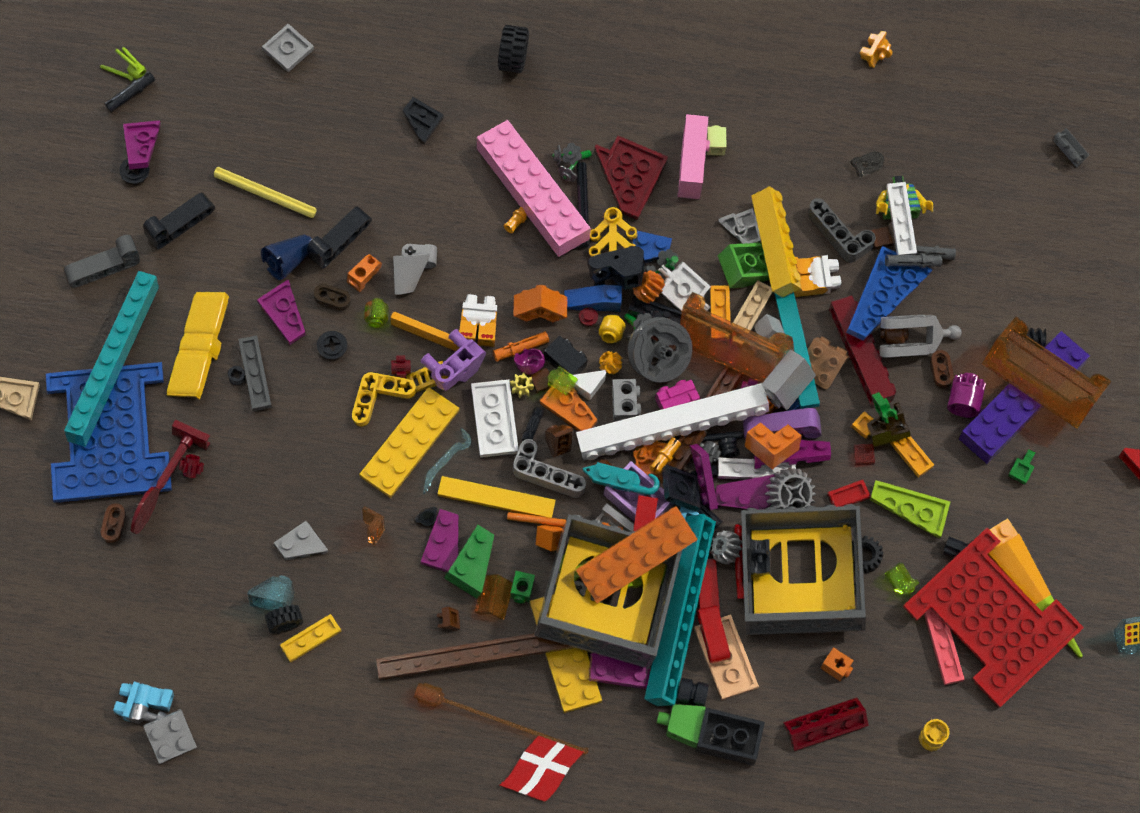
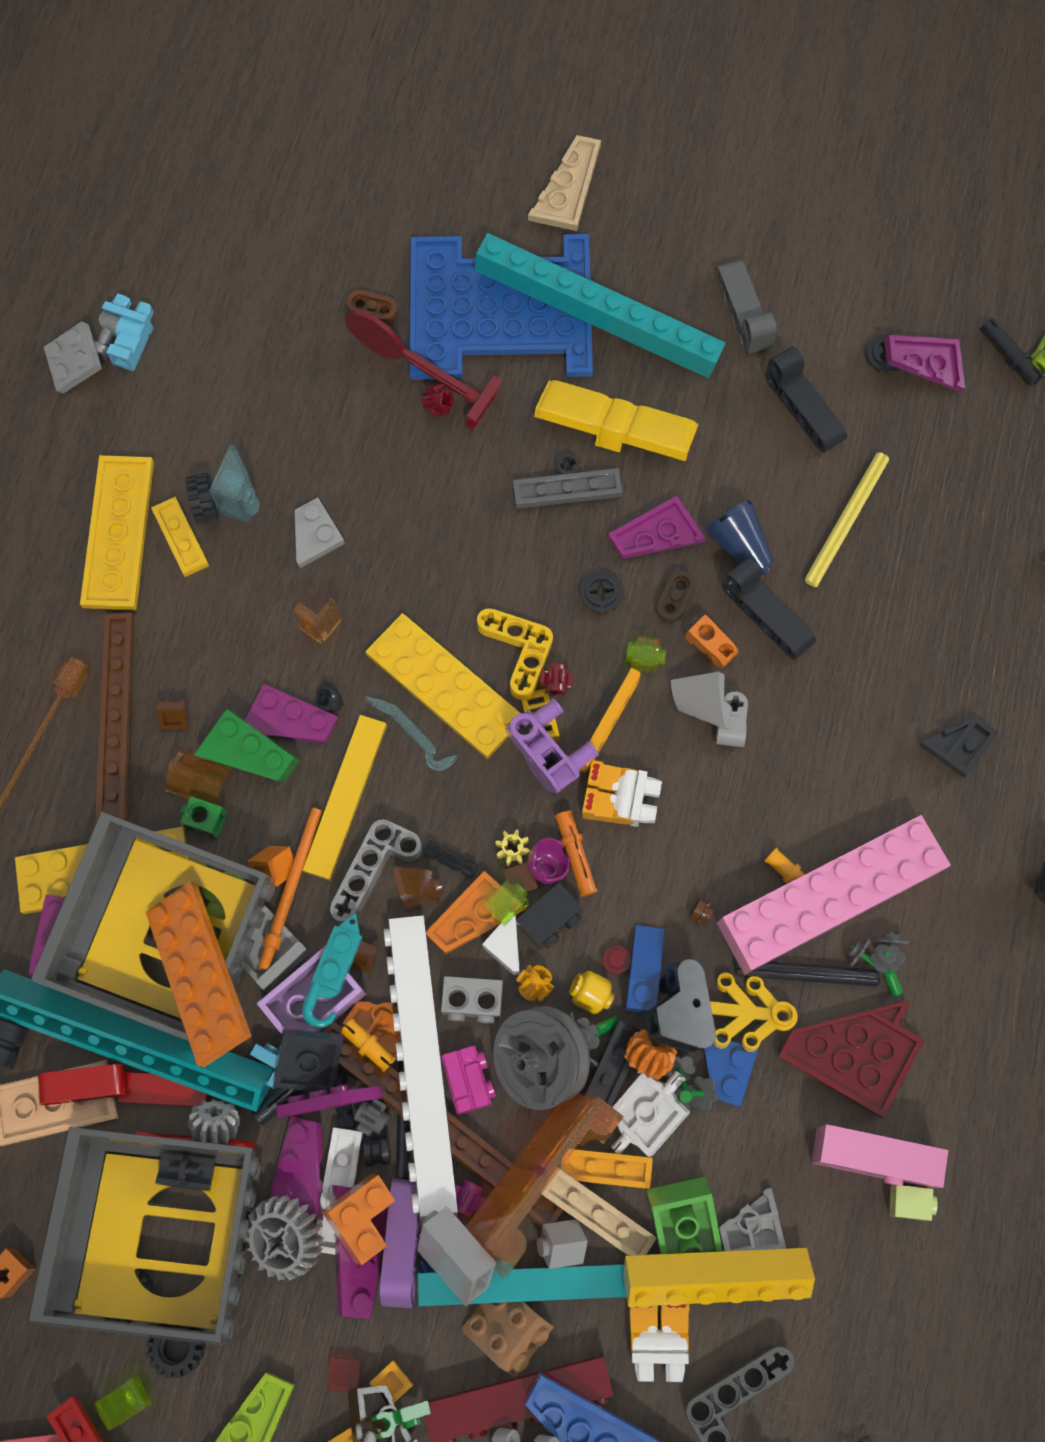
camera: 105 degrees right, 5 degrees up
(311, 681) = (117, 533): none -> yellow plate
(494, 418) = (465, 804): white plate -> none
(540, 303) = (637, 883): orange brick -> none
(550, 268) = (701, 911): none -> reddish brown plate
(645, 511) = (269, 999): red tile -> none
(849, 494) = (279, 1337): red tile -> none

